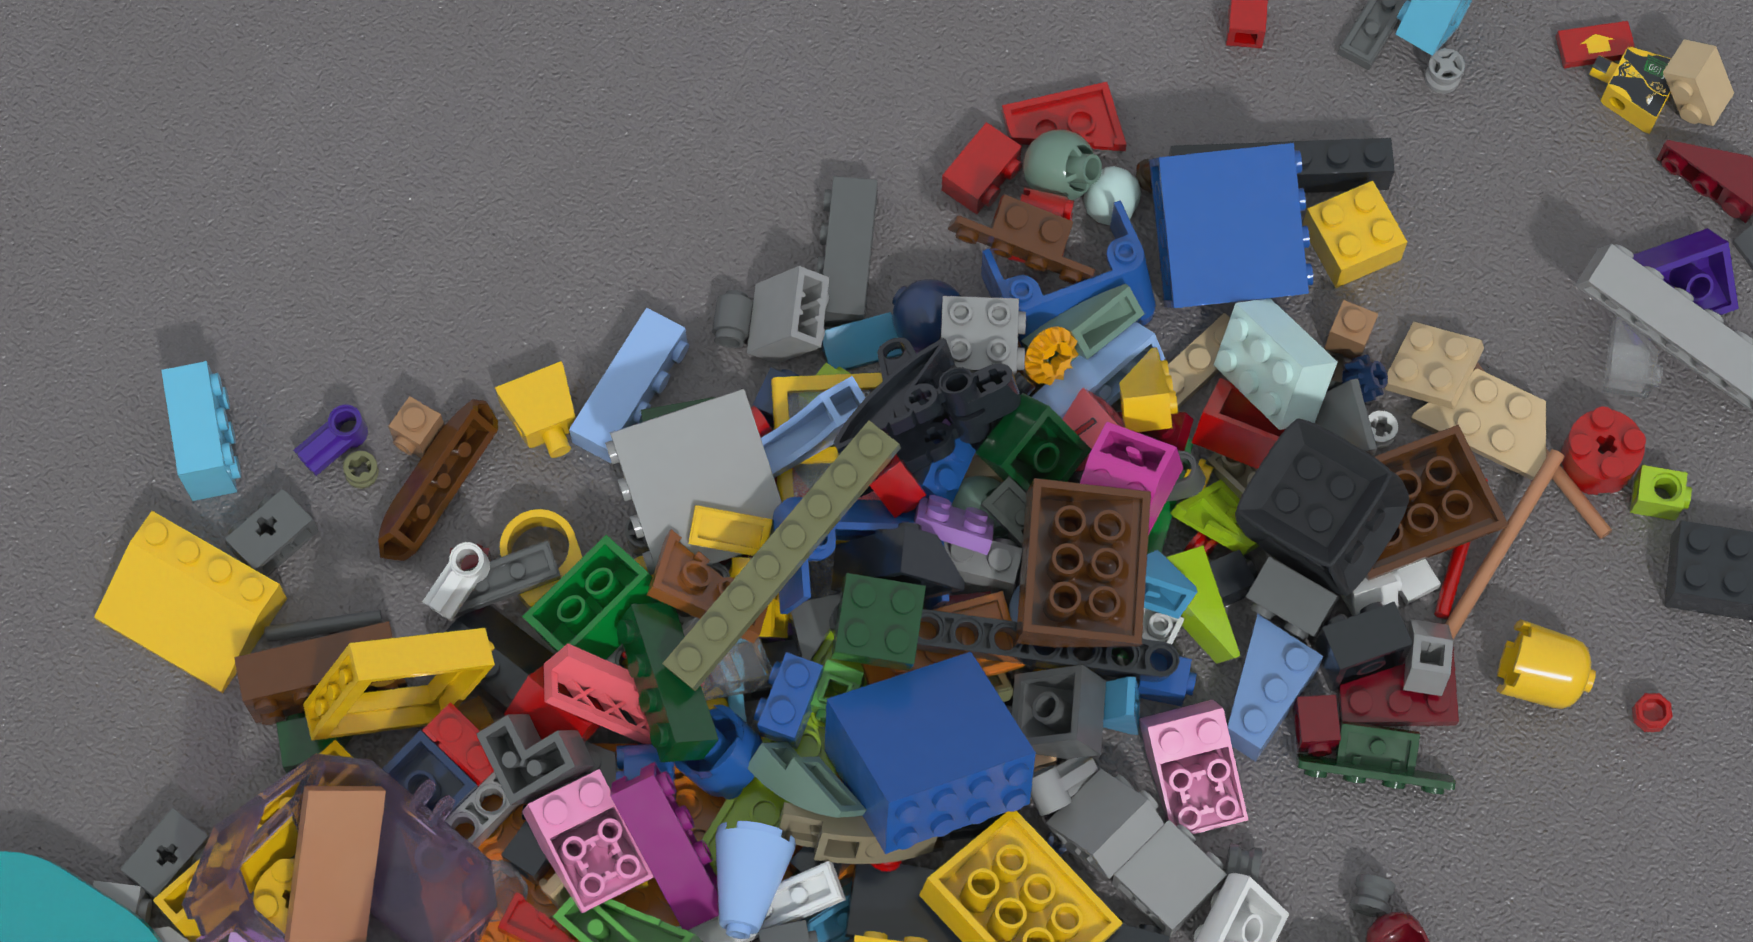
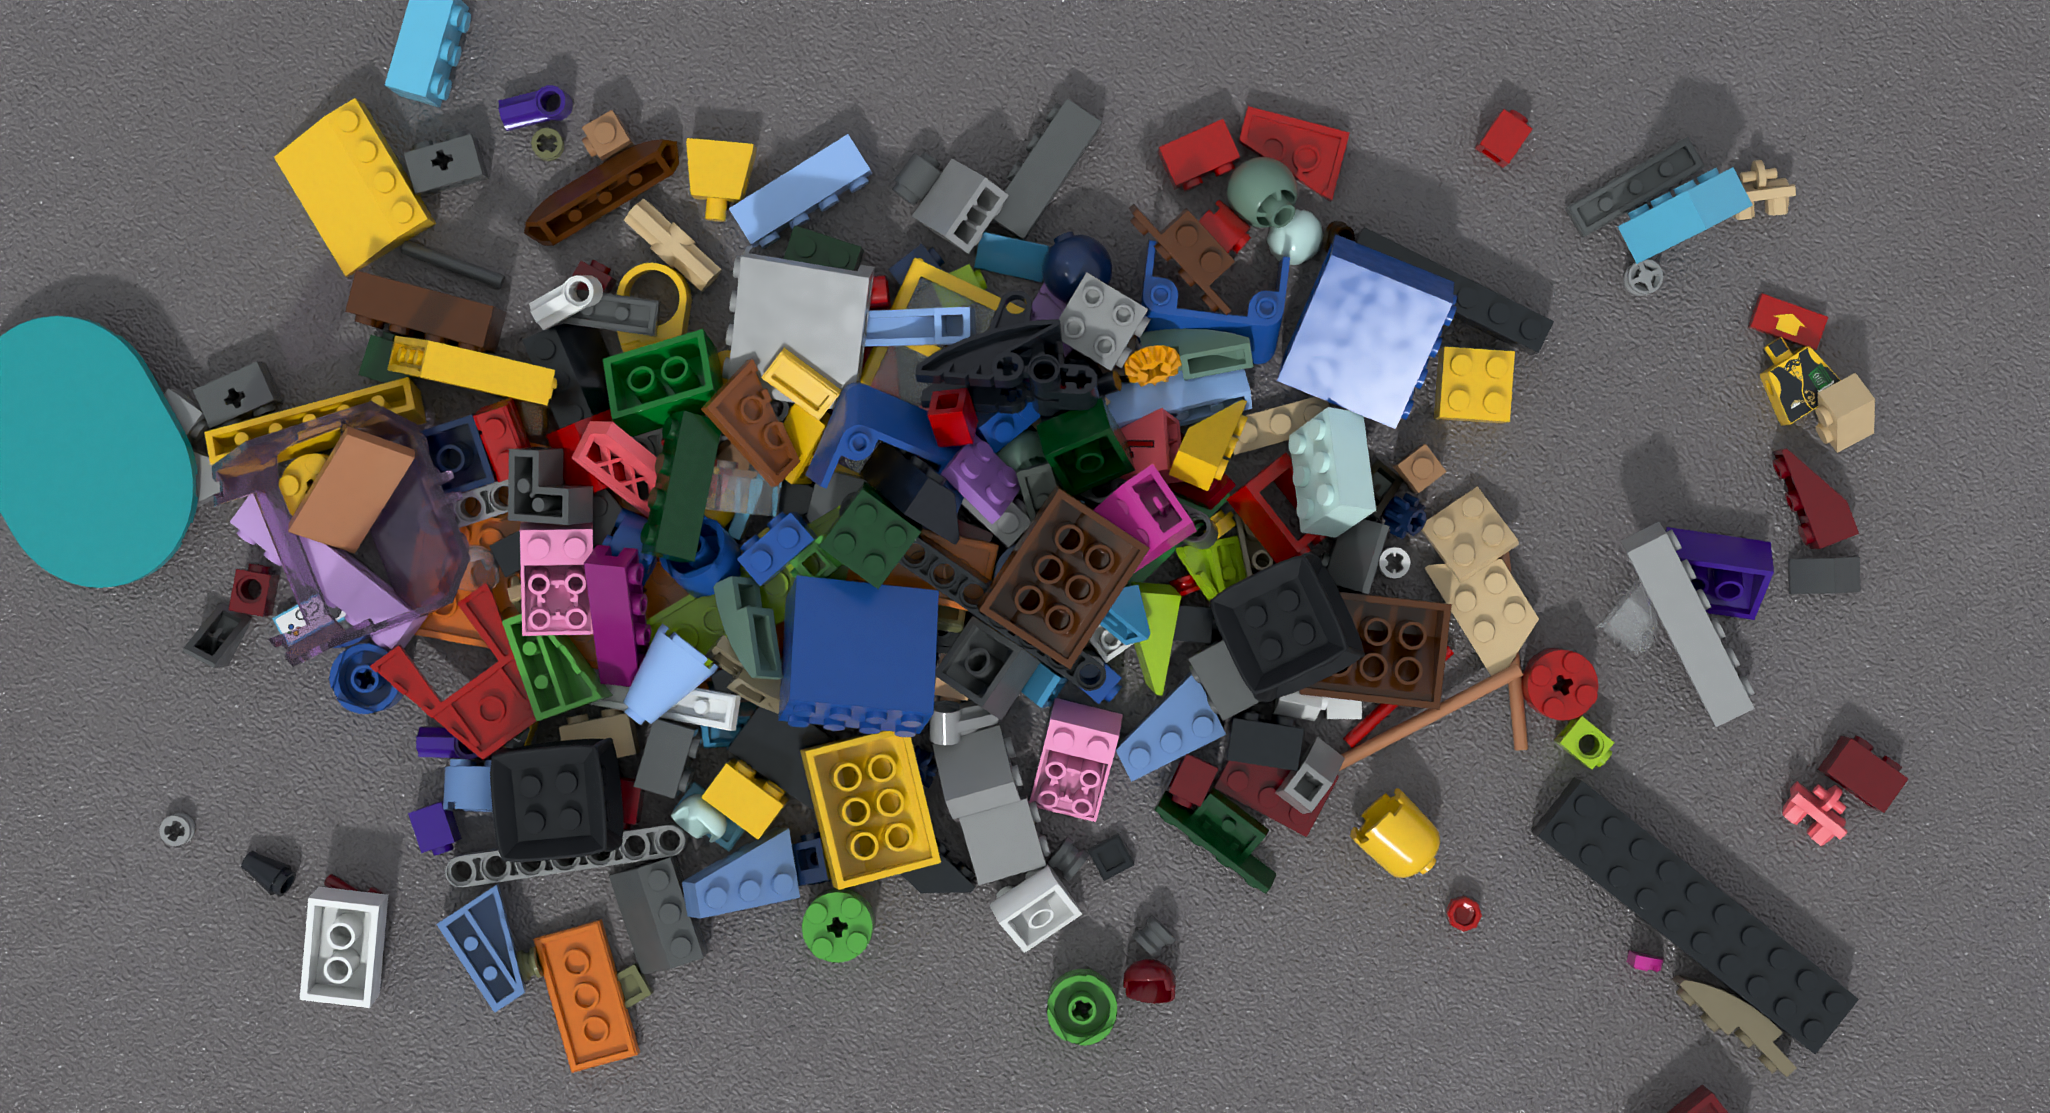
camera: 25 degrees right, 20 degrees up
(530, 492) = (672, 245): none -> tan piece
(781, 555) = (821, 443): olive plate -> none
(1283, 844) = (1111, 857): none -> black tile

